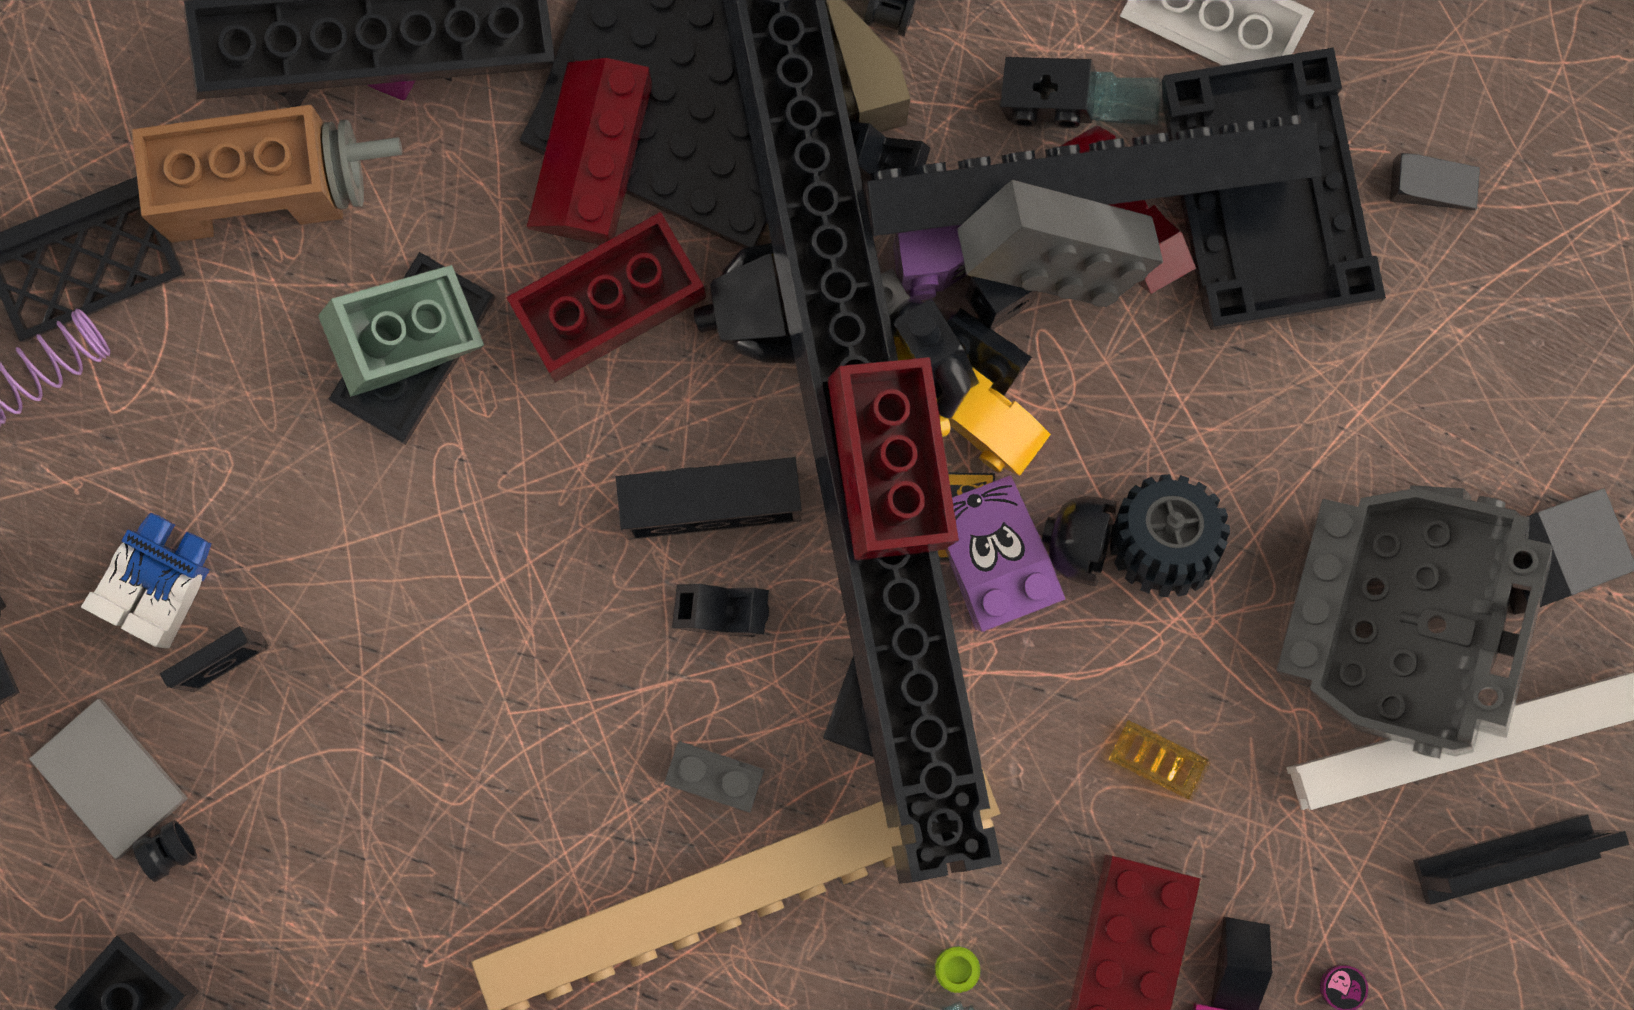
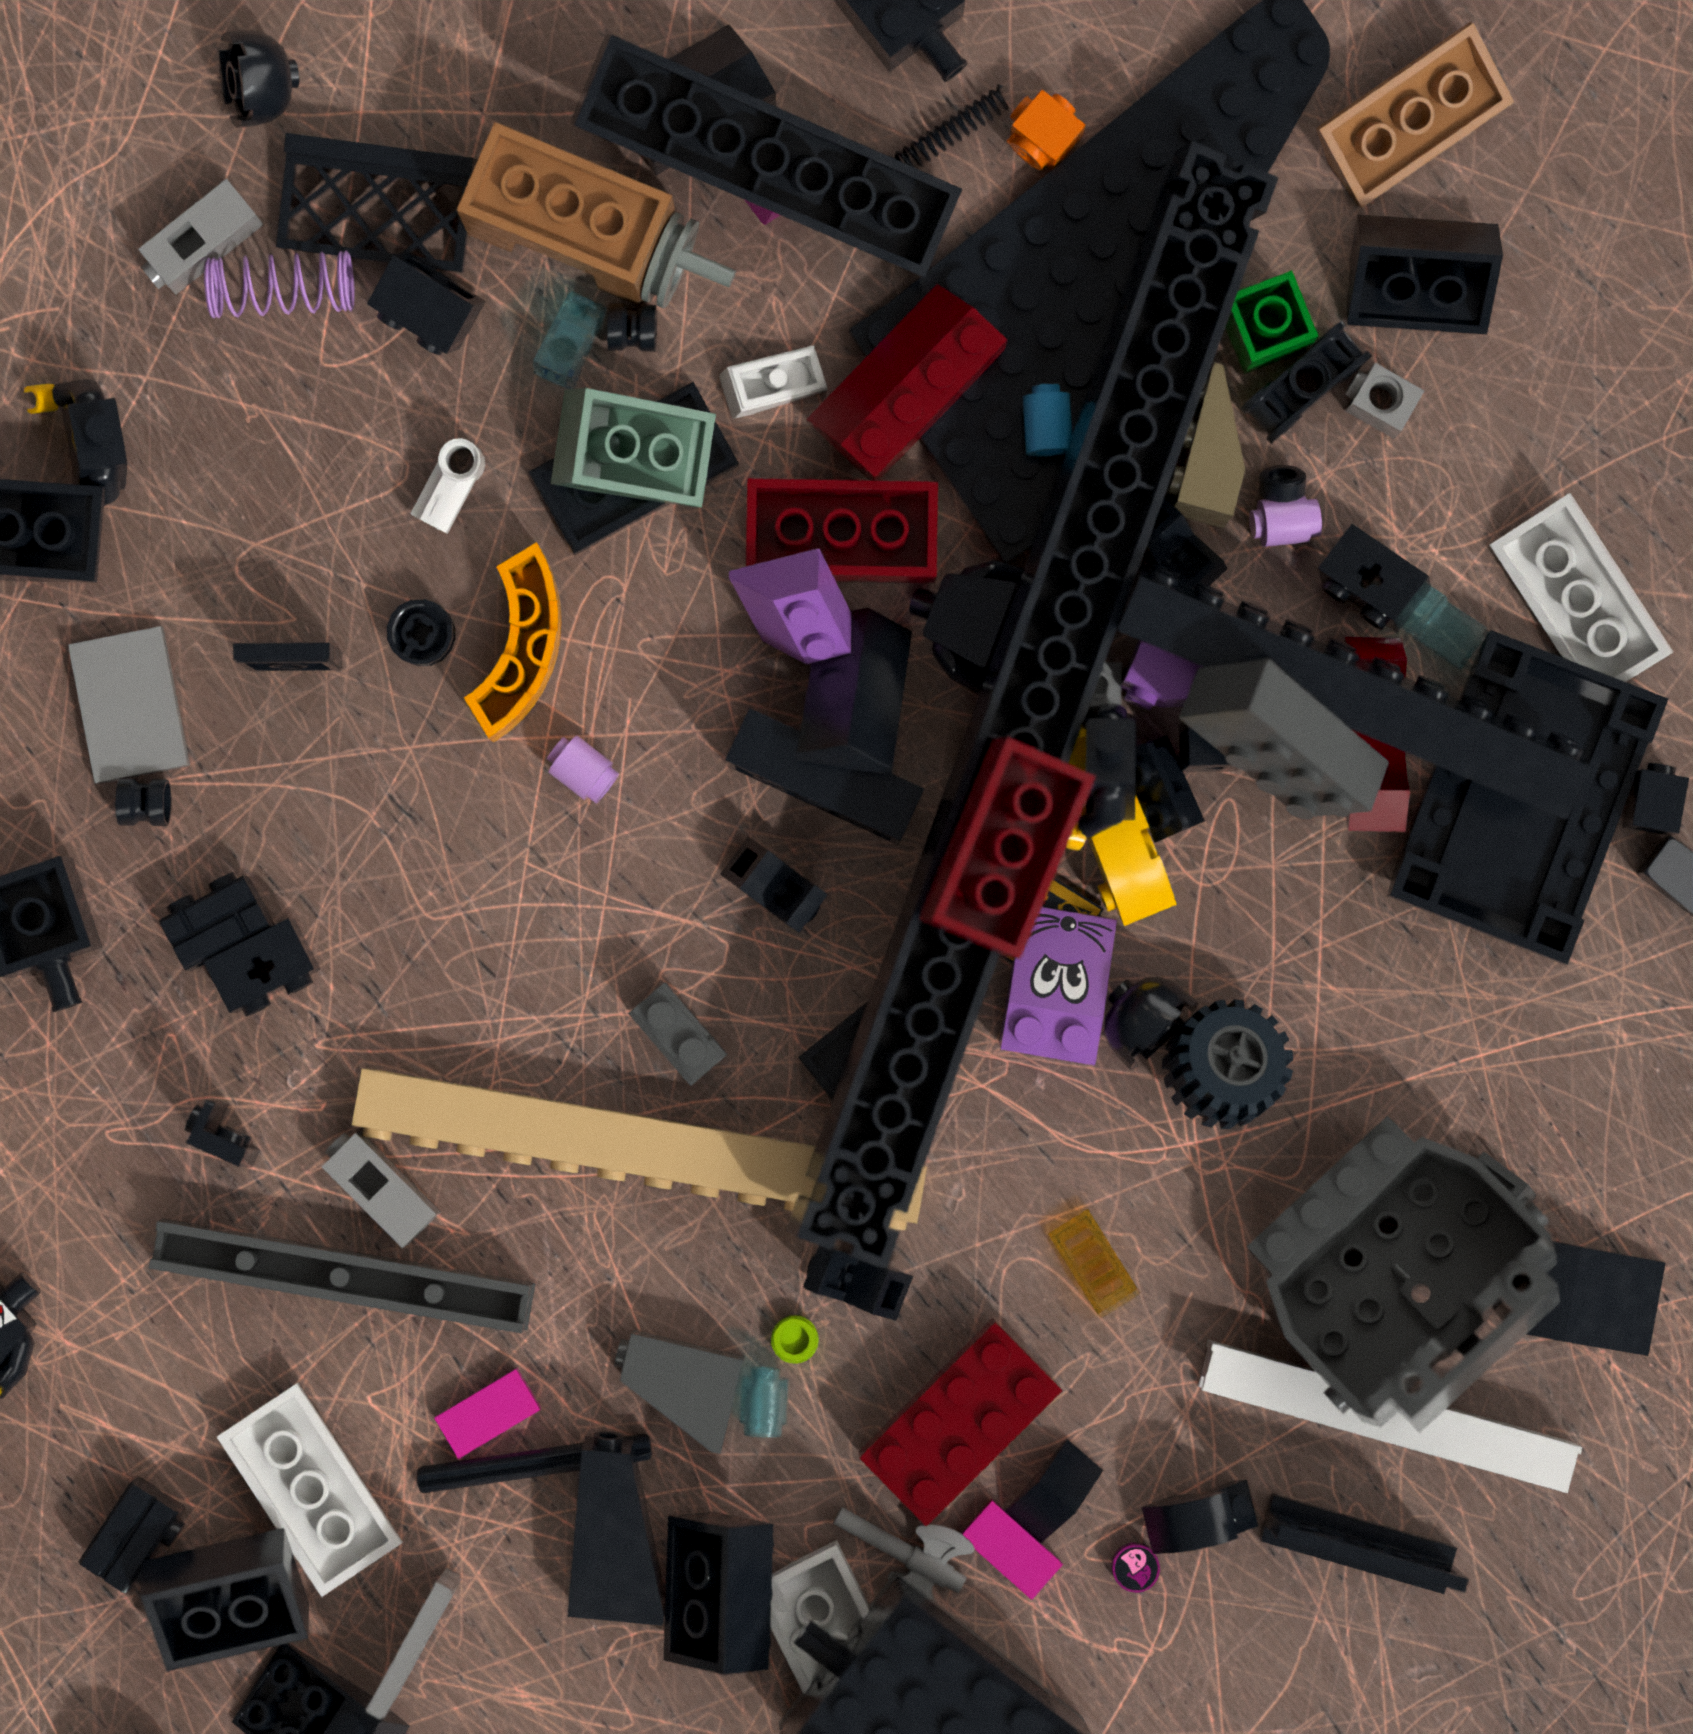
camera: 30 degrees right, 5 degrees up
(149, 583) = (268, 547): hips -> none
(166, 314) = (425, 304): none -> black brick
(269, 451) = (446, 490): none -> white piece
(281, 913) = (215, 920): none -> black brick
(300, 277) = (569, 340): none -> clear light blue leg
(315, 578) = (421, 632): none -> black wheel
(320, 940) = (235, 968): none -> black brick
(353, 232) = (642, 327): none -> black wheel
(412, 539) = (530, 649): none -> light orange brick
(482, 216) = (772, 381): none -> white slope
(510, 609) = (582, 768): none -> lavender brick
(605, 376) = (796, 606): none -> medium lavender slope
(693, 416) = (857, 698): none -> black slope
(719, 116) = (1047, 421): none -> dark azure brick
(932, 60) = (1282, 483): none -> black tile
(952, 87) = (1285, 521): none -> lavender brick
(980, 891) = (857, 1282): none -> black brick
(1372, 133) = (1656, 800): none -> black brick
(1372, 917) = (1199, 1519): none -> black brick

